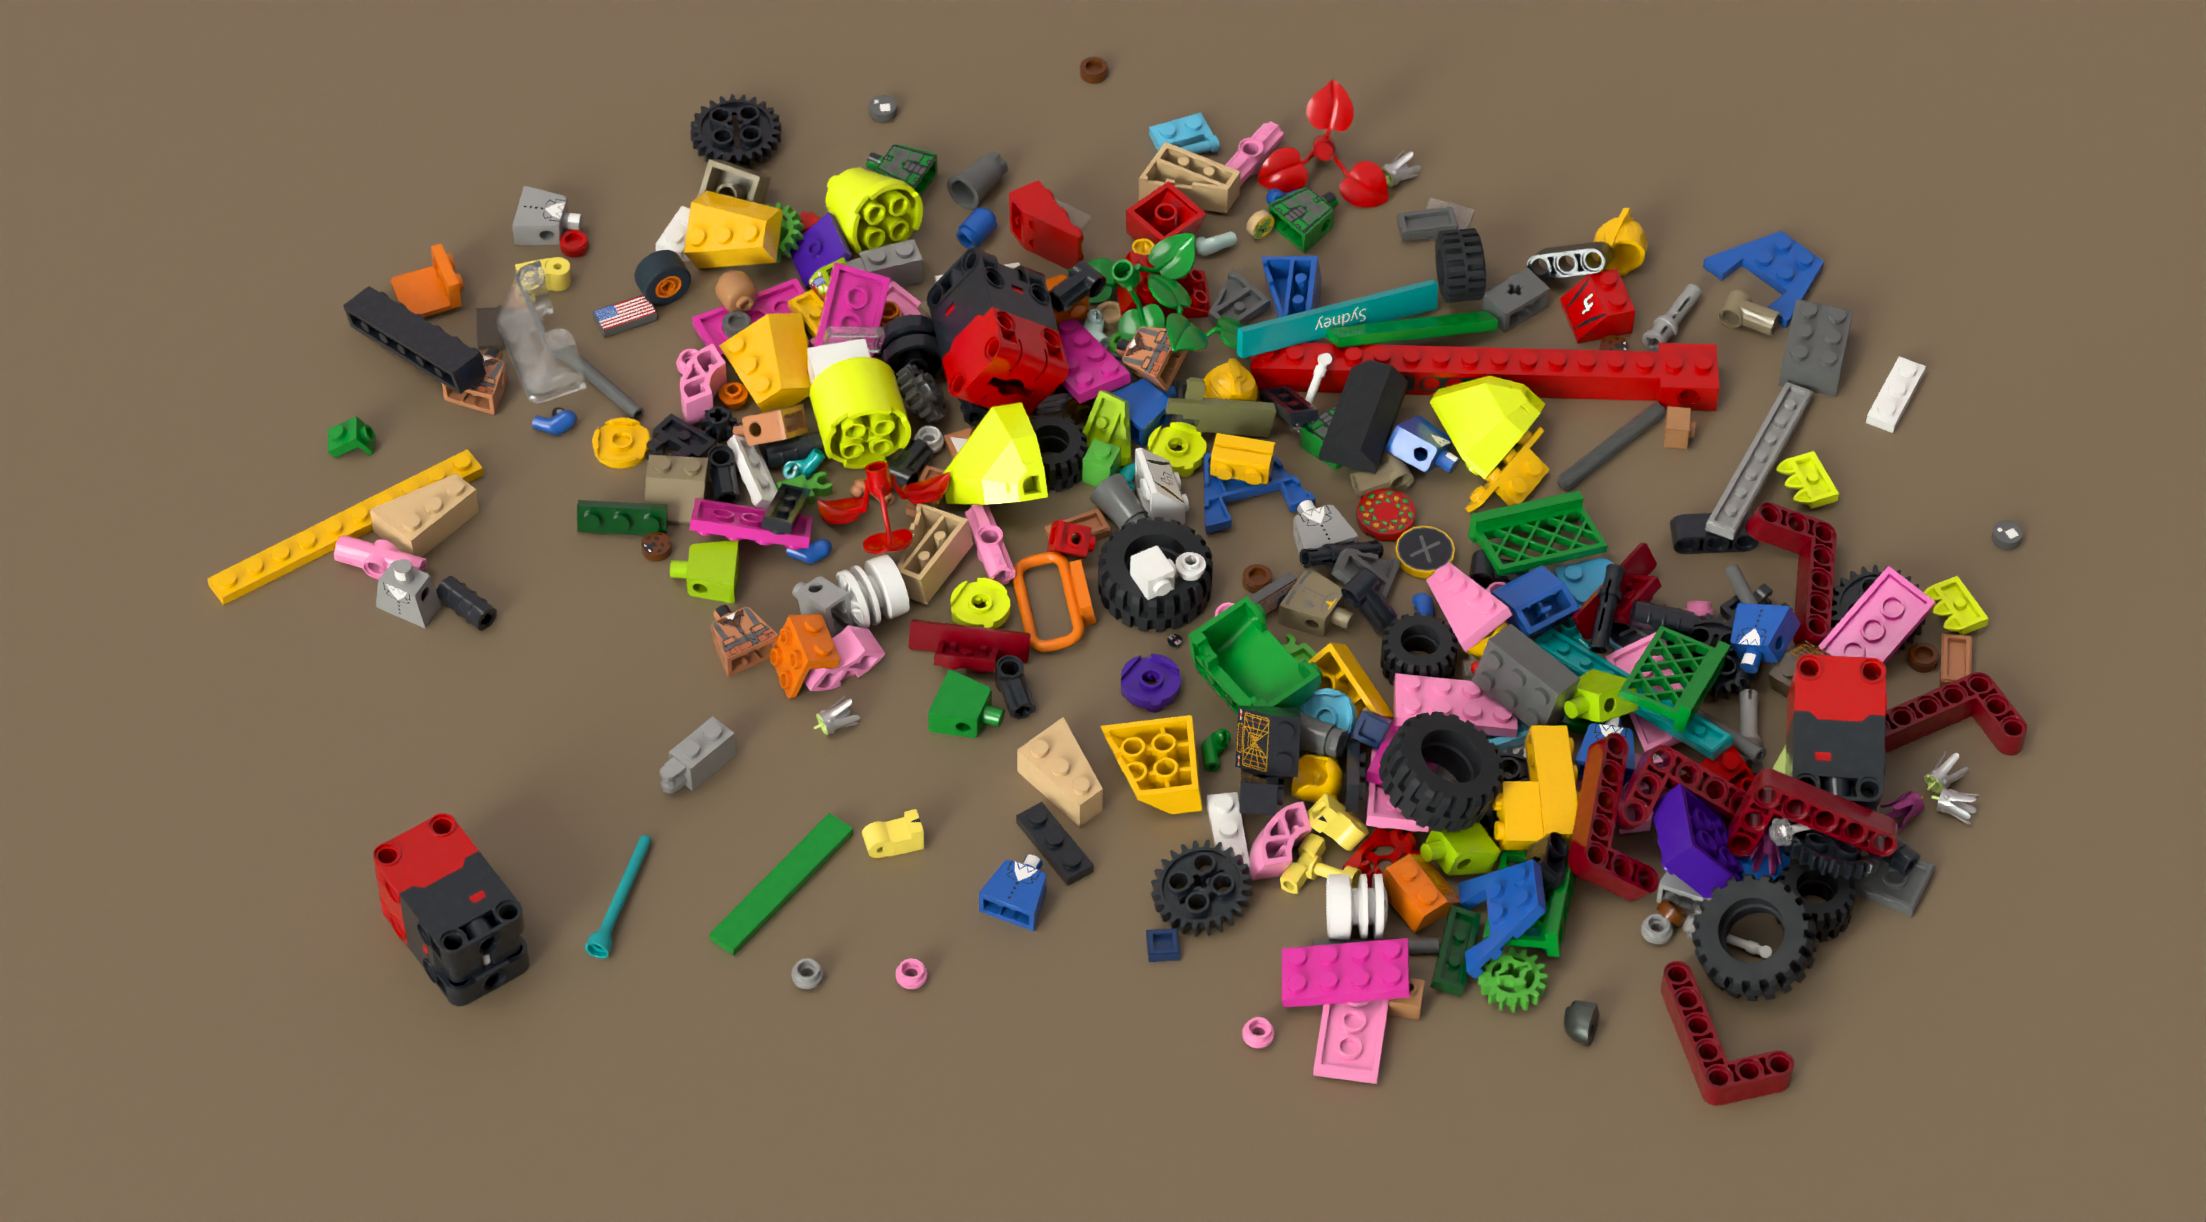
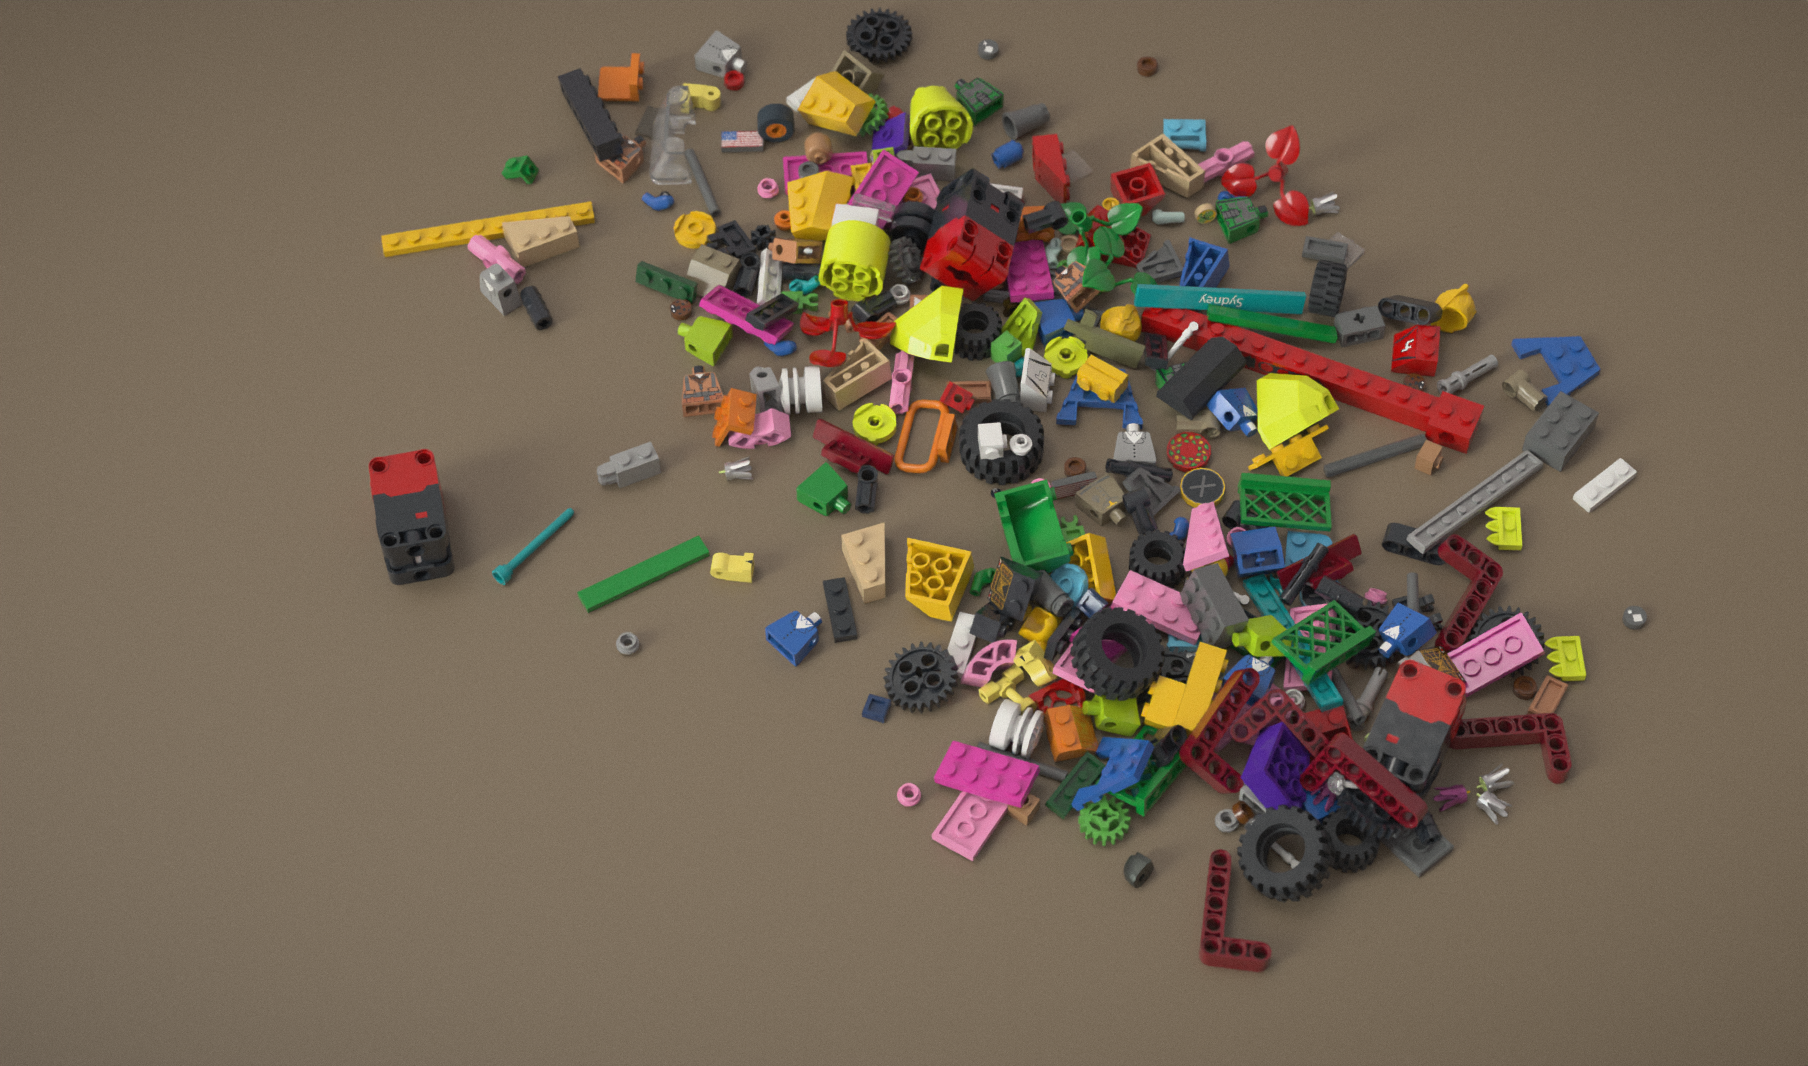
camera: 25 degrees right, 5 degrees up
(701, 382) = (763, 205): bright pink brick -> none
(909, 967) = (696, 662): bright pink plate -> none
(1150, 696) = (962, 528): dark purple plate -> none

